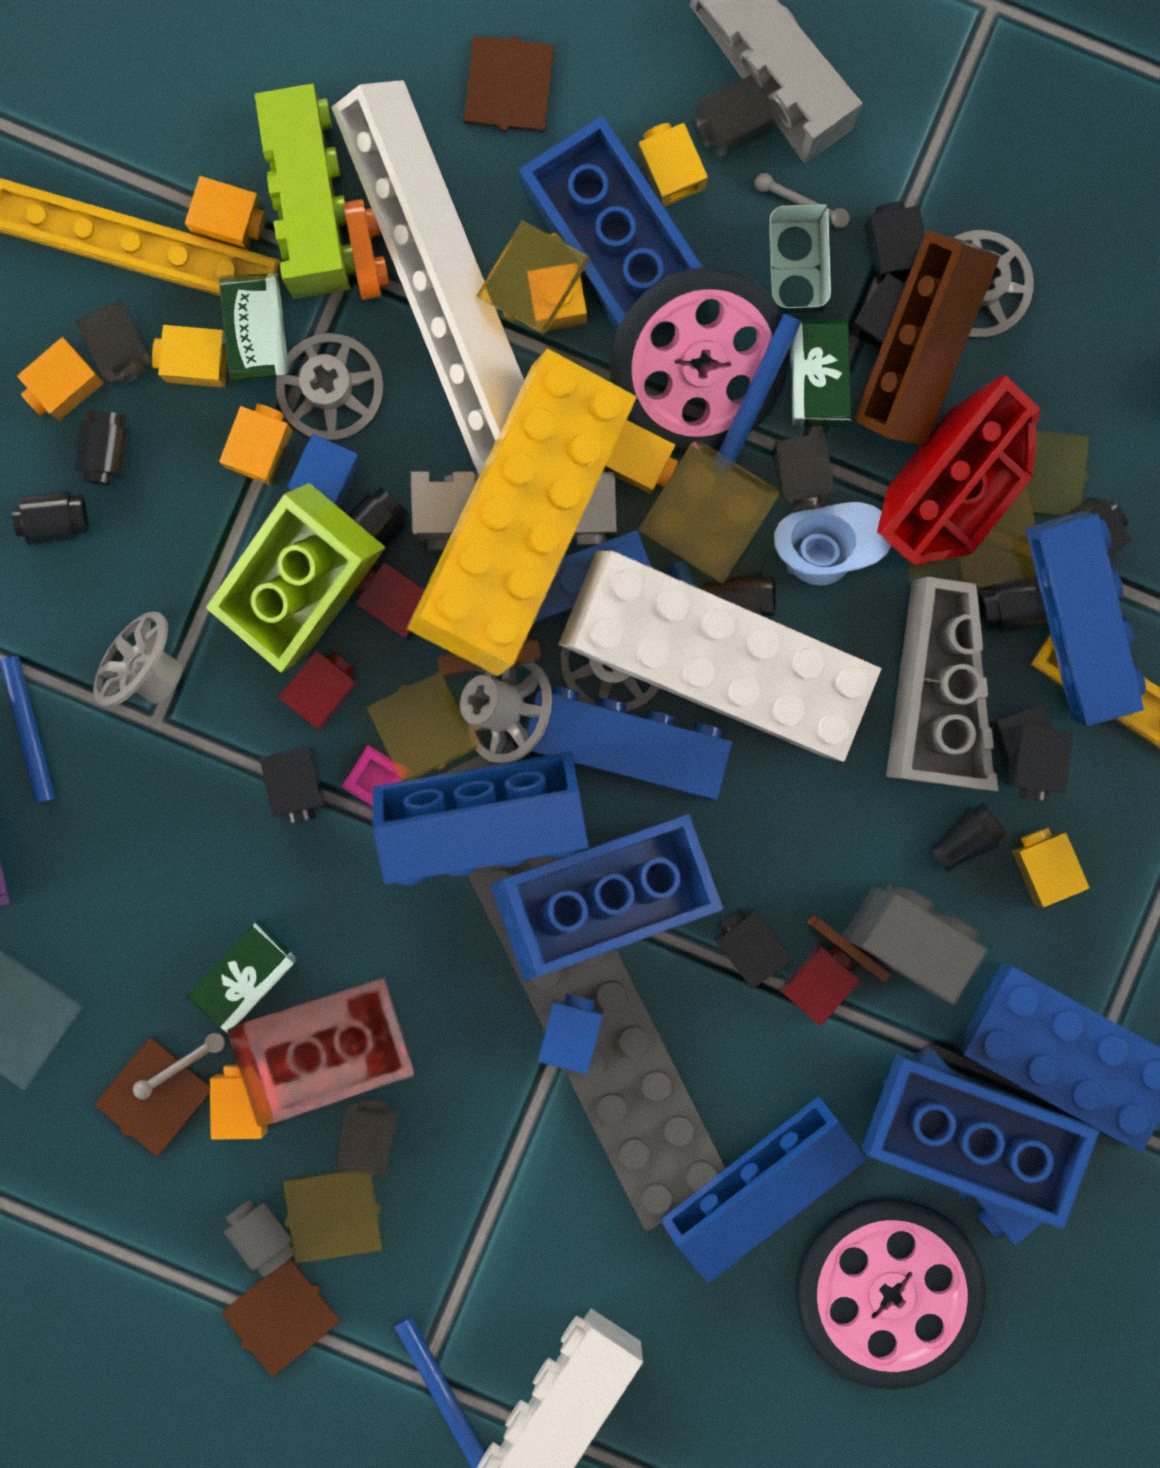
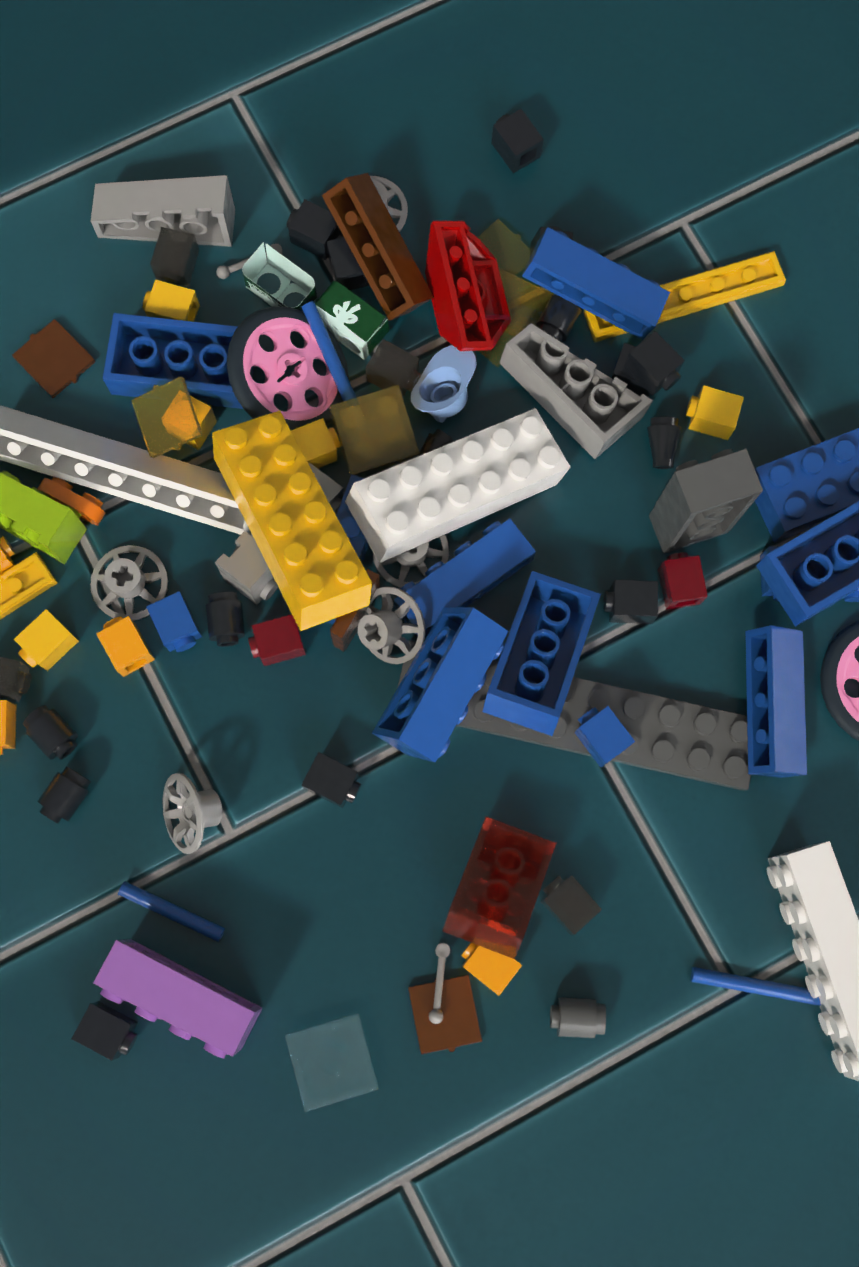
camera: 55 degrees left, 10 degrees down
(242, 976) = (418, 900): dark green piece -> none
(253, 326) = (58, 591): piece -> none
(281, 1317) = (634, 1045): reddish brown piece -> none
(295, 577) = (217, 679): lime brick -> none
(320, 688) = (291, 721): dark red brick -> none
(332, 1215) = (598, 964): clear yellow piece -> none
(370, 771) = (361, 734): dark pink tile -> none
(421, 727) = (360, 683): clear yellow piece -> none
(848, 948) = (690, 544): reddish brown piece -> none

